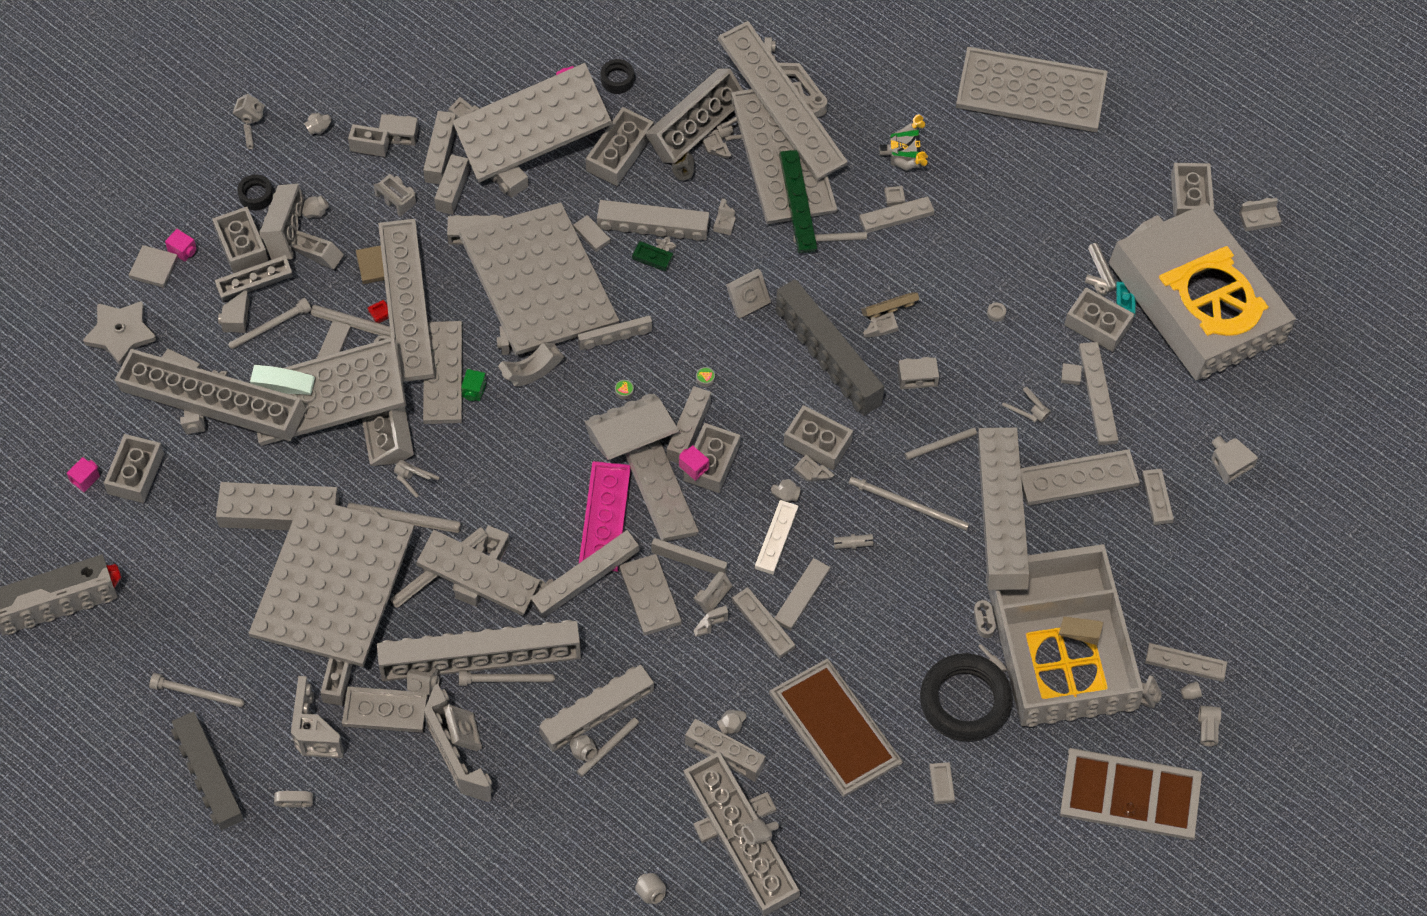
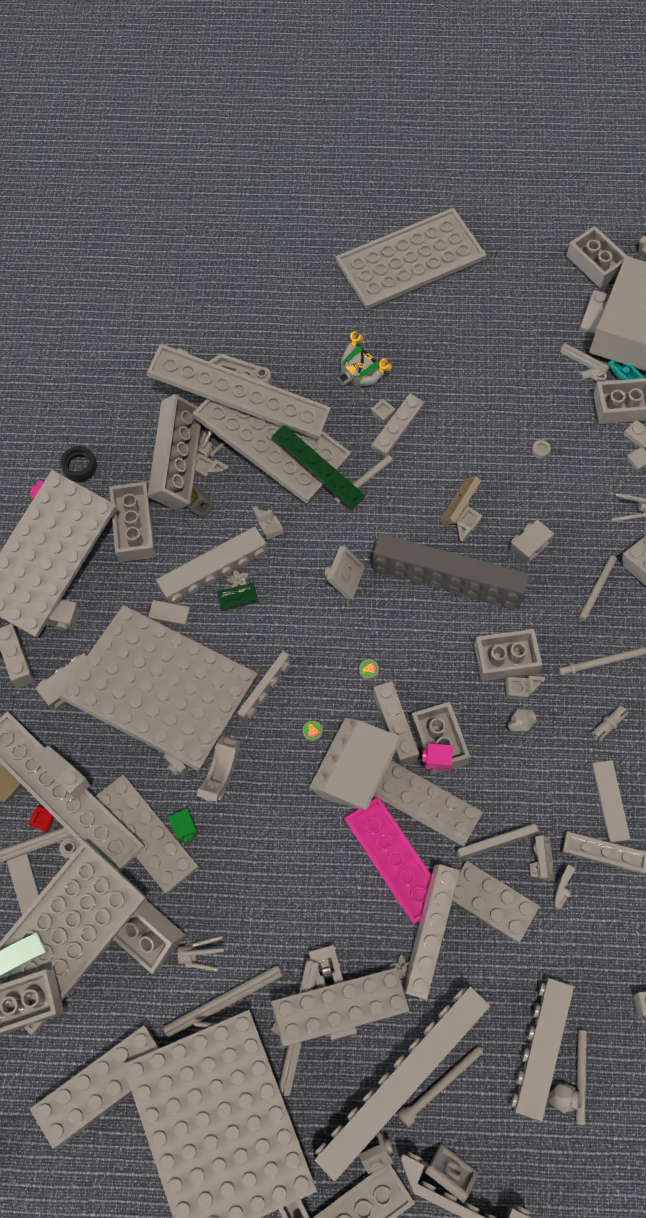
camera: 35 degrees left, 5 degrees up
(418, 286) = (62, 772): none -> light grey slope
(776, 537) = (548, 767): white plate -> none

